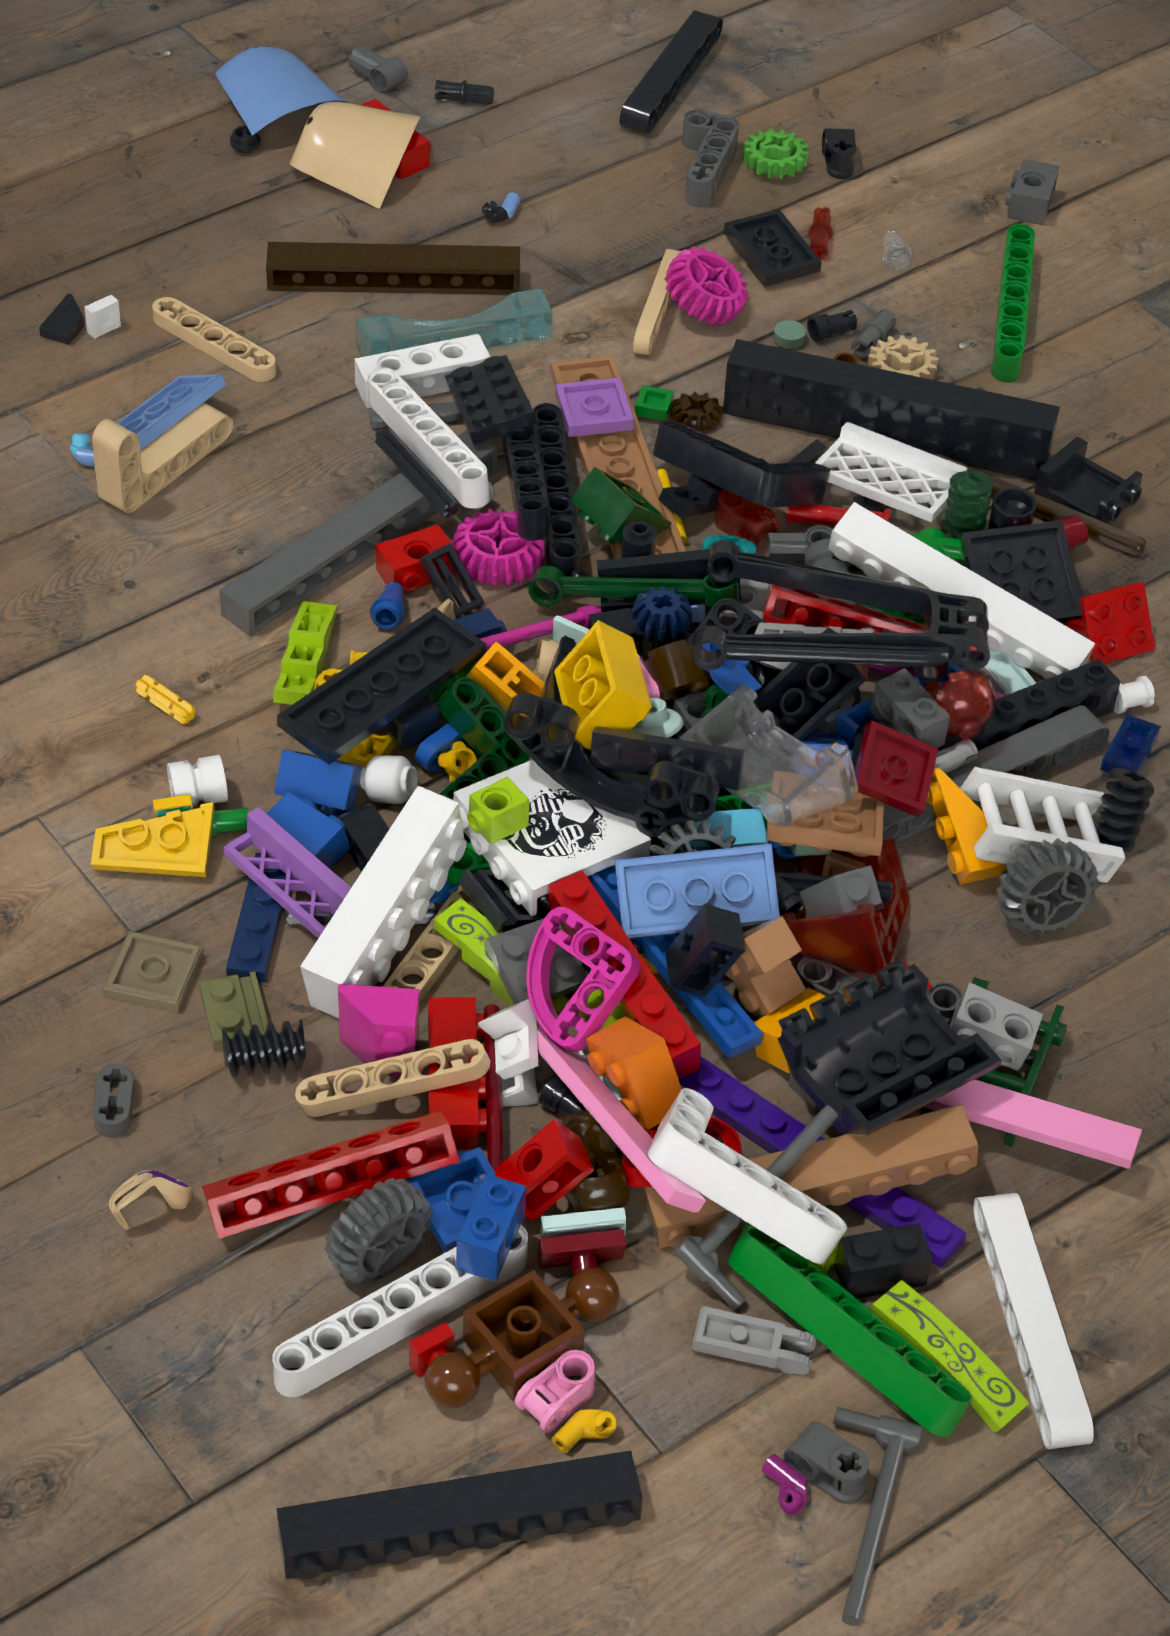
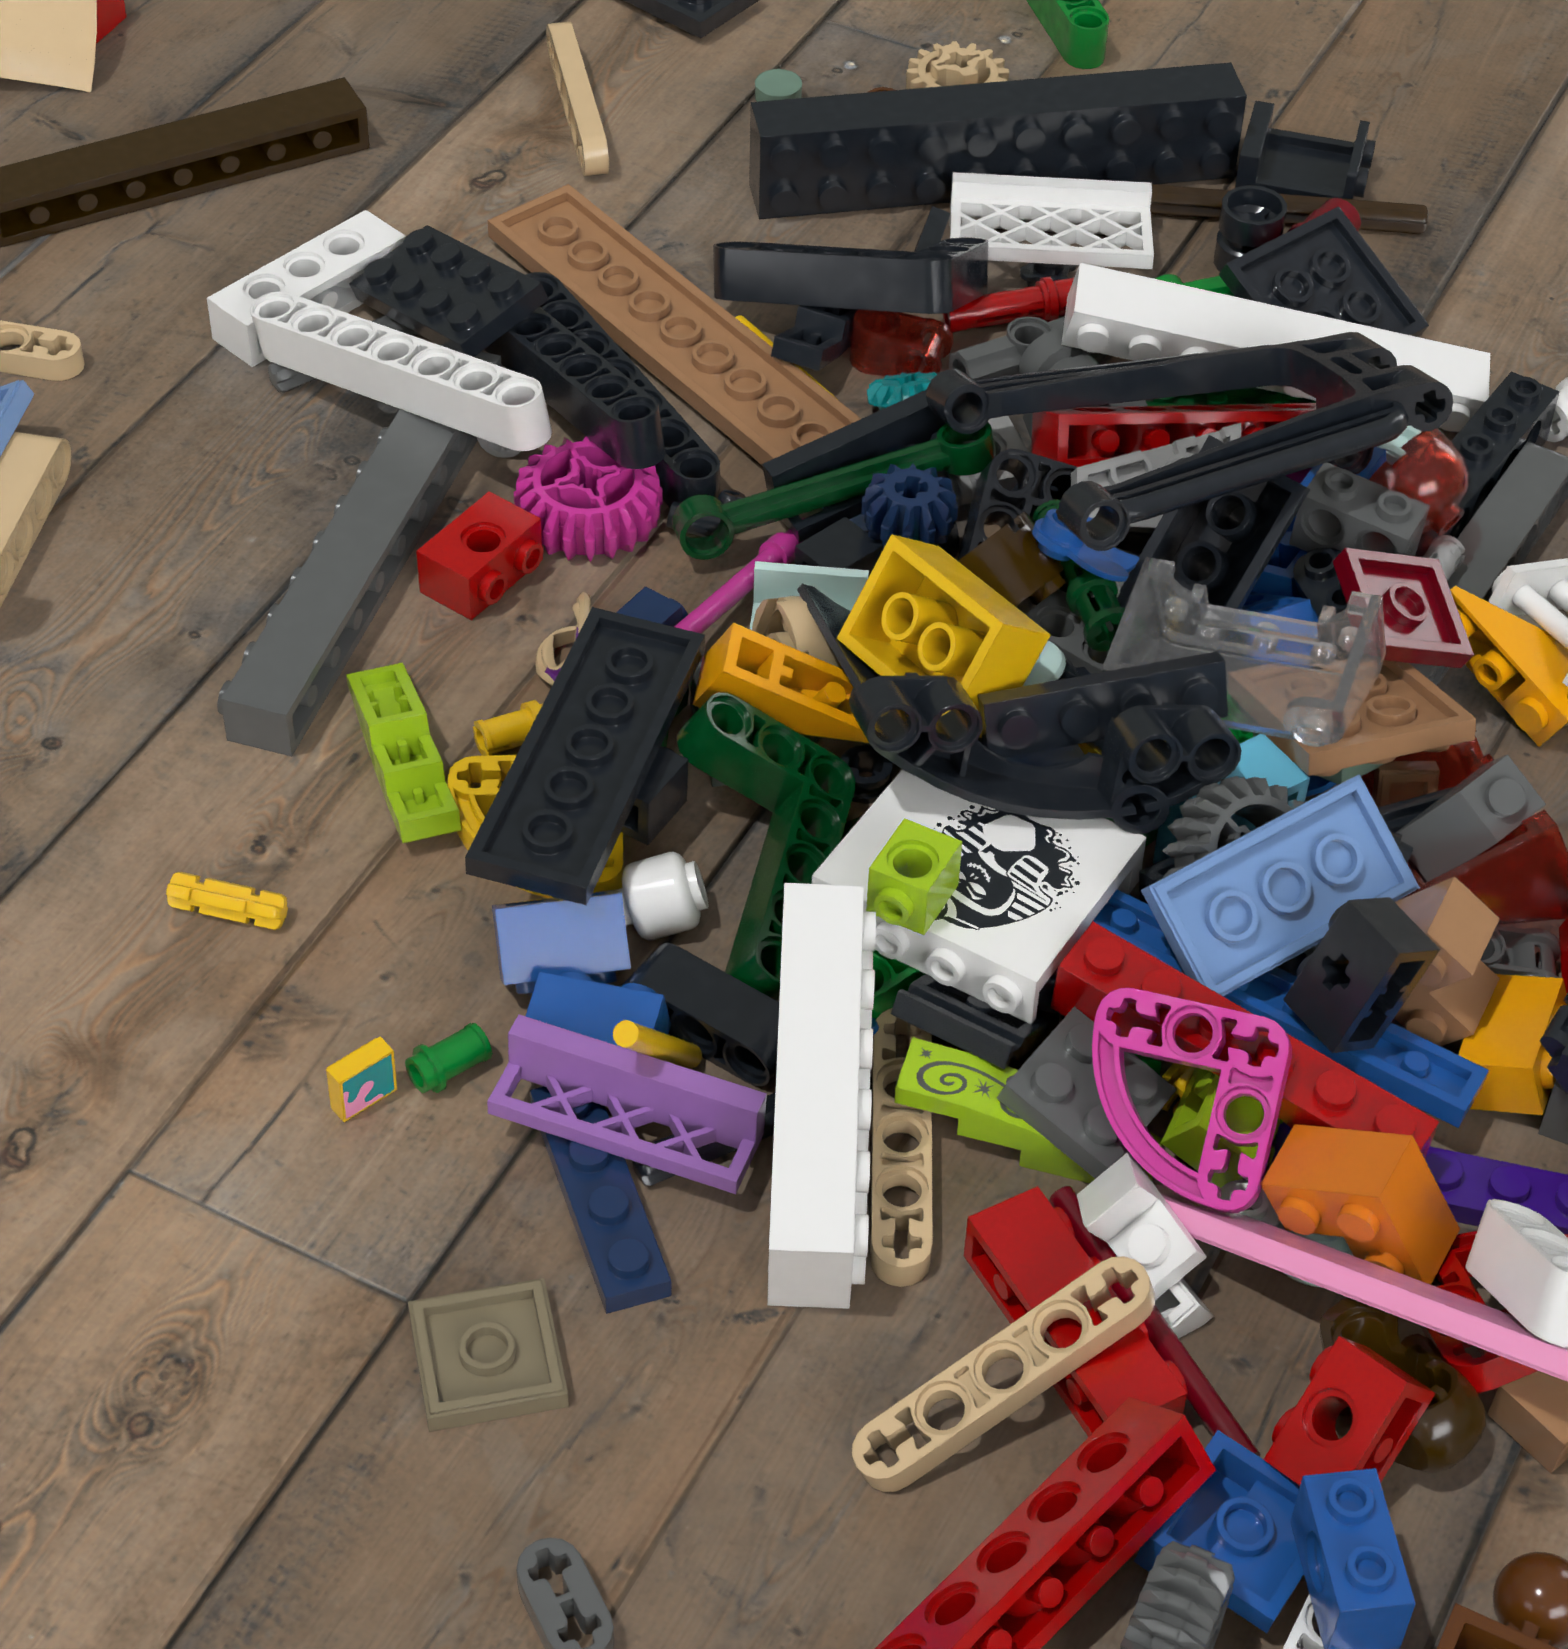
camera: 25 degrees left, 0 degrees up
(161, 845) = (374, 1138): yellow wing -> none
(202, 781) = (381, 1003): white wheel -> none
(232, 1003) = (660, 1365): olive plate -> none
(264, 1048) = (760, 1407): black piece -> none
(322, 850) = (656, 1044): none -> yellow bar
(378, 1021) = (930, 1293): dark pink slope -> none
(388, 608) = (484, 638): blue cone -> none
(416, 472) = (412, 426): black axle -> none
(435, 744) = (705, 819): blue beam -> none
(460, 753) = (743, 831): yellow plate -> none
(461, 572) = (551, 573): black tile -> none
(496, 213) = (280, 41): arm -> none
(514, 320) = (395, 179): clear light blue arch -> none
(560, 1098) = (1255, 1295): black pin -> none
(581, 1250) = (1471, 1536): dark red tile -> none
(583, 1222) = (1448, 1492): light aqua tile -> none
(594, 407) = (599, 257): medium lavender plate -> none
(613, 505) = (734, 385): dark green slope -> none
(638, 539) = (801, 417): black brick -> none
(654, 403) = (666, 231): green plate -> none
(696, 419) = (738, 223): dark brown gear -> none
(706, 286) = (637, 55): dark pink gear -> none
(825, 325) = (820, 63): black pin -> none
(872, 332) = (890, 54): dark grey pin -> none
(967, 502) = (1189, 227): clear green piece -> none
(1116, 622) = (1484, 315): red bracket -> none

